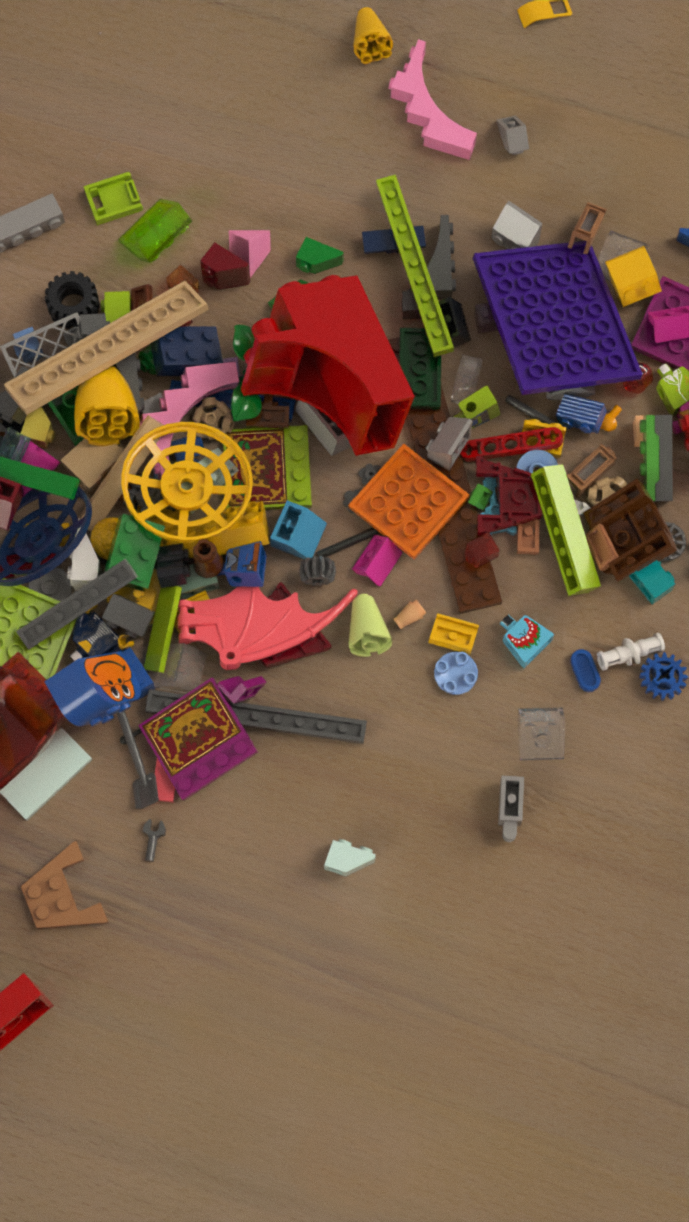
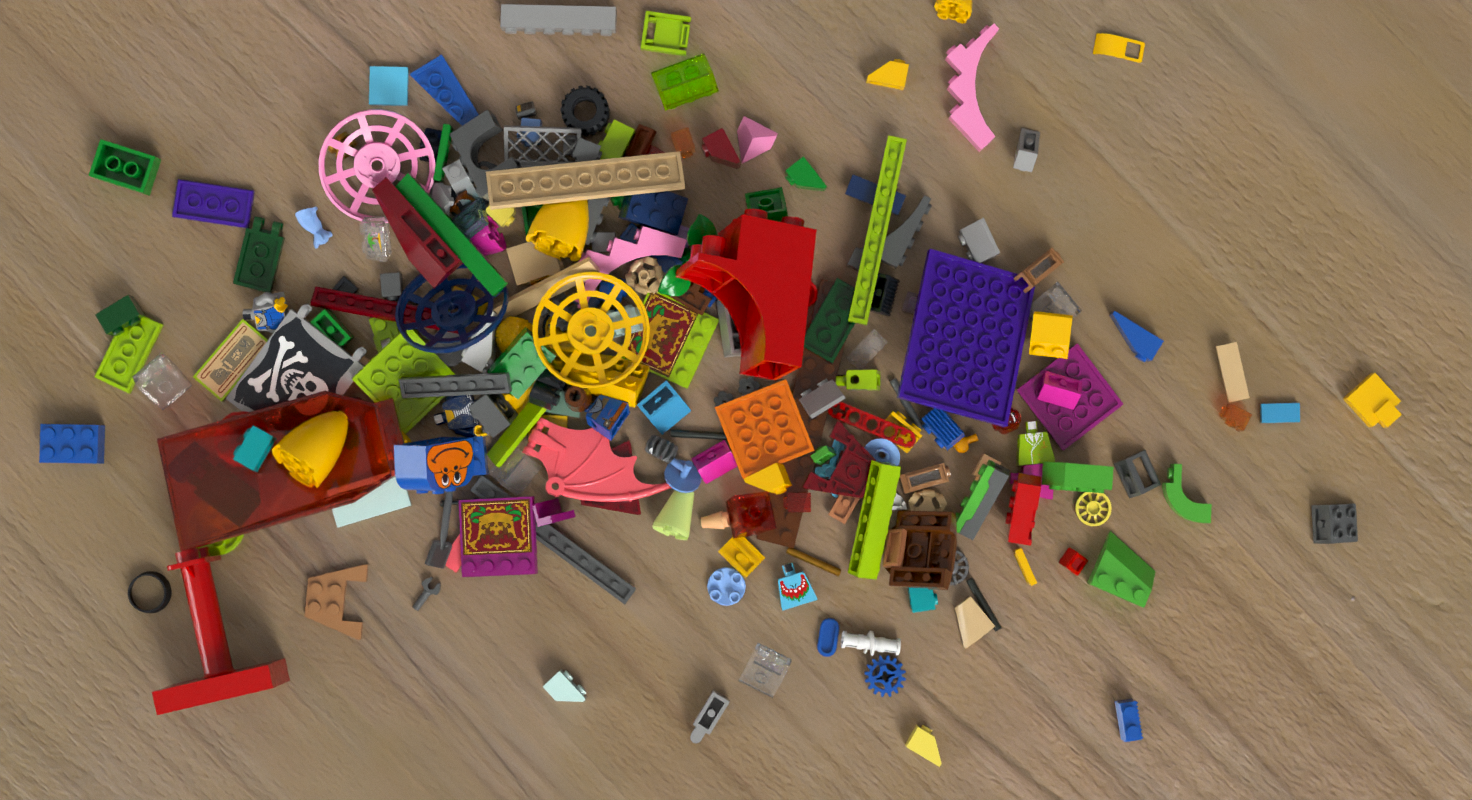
camera: 30 degrees right, 15 degrees up
(14, 327) = (525, 110): none -> dark grey slope
(347, 132) = (890, 75): none -> yellow slope
(351, 585) = (682, 476): none -> medium blue shield
(440, 588) = (750, 514): none -> clear red slope
(441, 544) = (771, 479): none -> yellow slope
(527, 605) = (813, 561): none -> pearl gold bar

